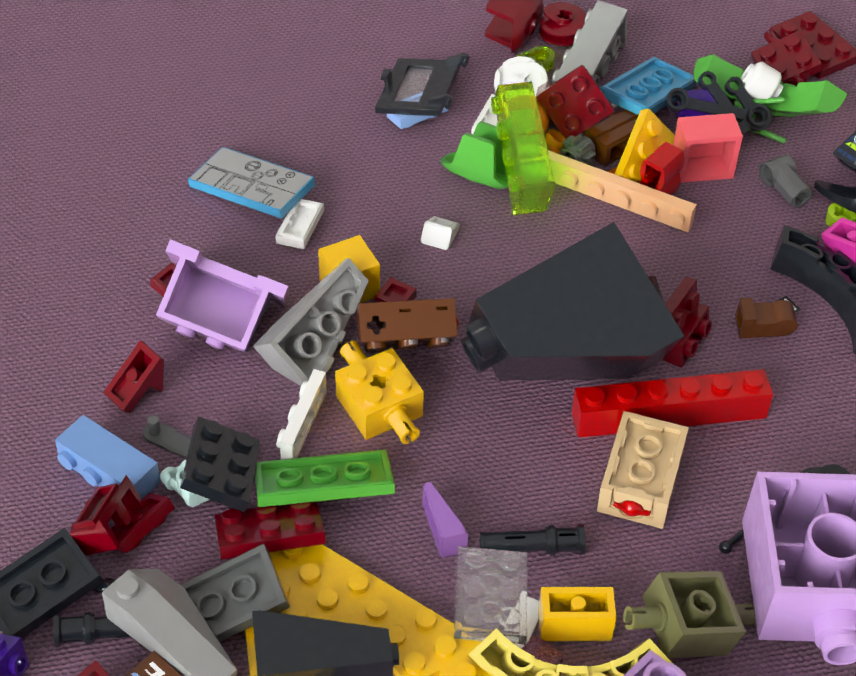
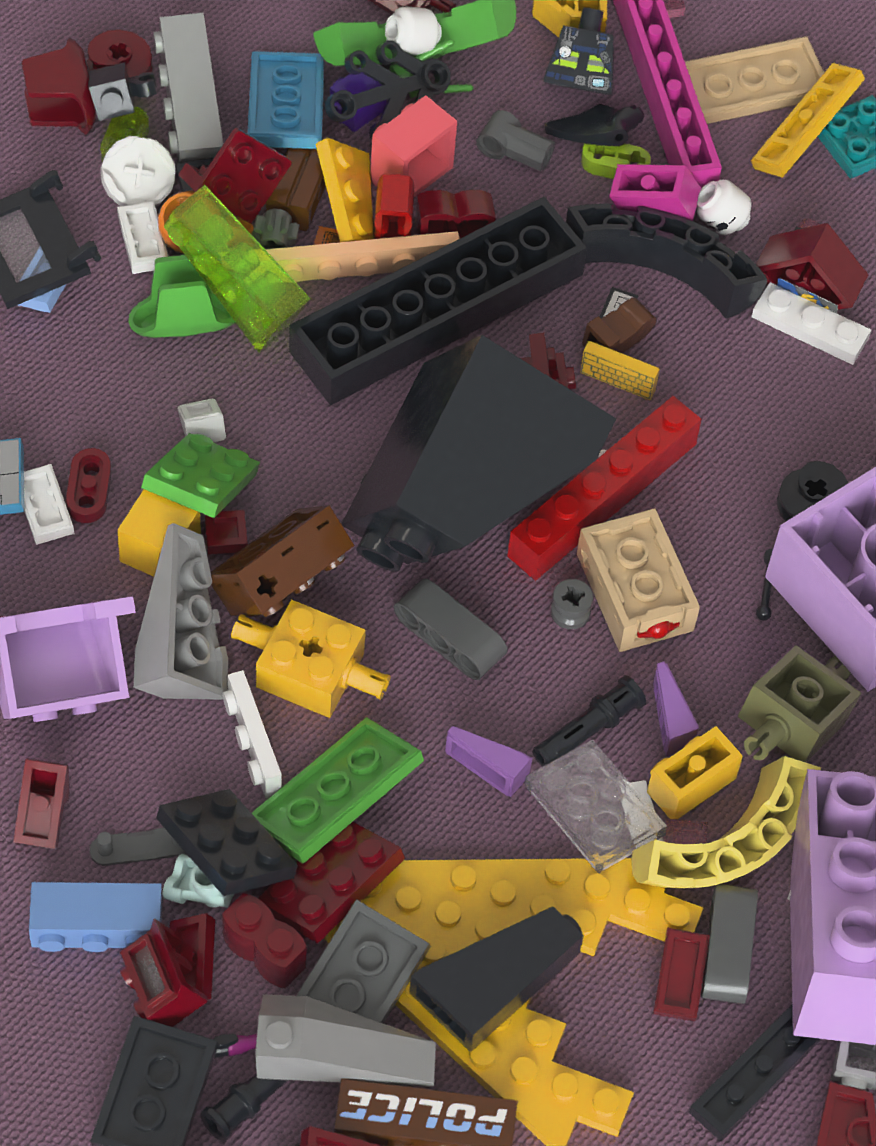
camera: 40 degrees left, 10 degrees up
(191, 537) = (259, 938): none -> dark red brick
(336, 226) = (88, 488): none -> dark red plate
(403, 251) = (201, 474): none -> bright green plate
(489, 430) = (450, 629): none -> dark grey beam
(543, 32) = (115, 92): none -> black brick
(587, 470) = (566, 613): none -> dark grey wheel
(598, 565) = (674, 714): none -> medium lavender slope
(661, 234) = (436, 300): none -> black brick
(714, 203) = (448, 212): none -> dark red brick
(744, 340) = (619, 370): none -> yellow tile

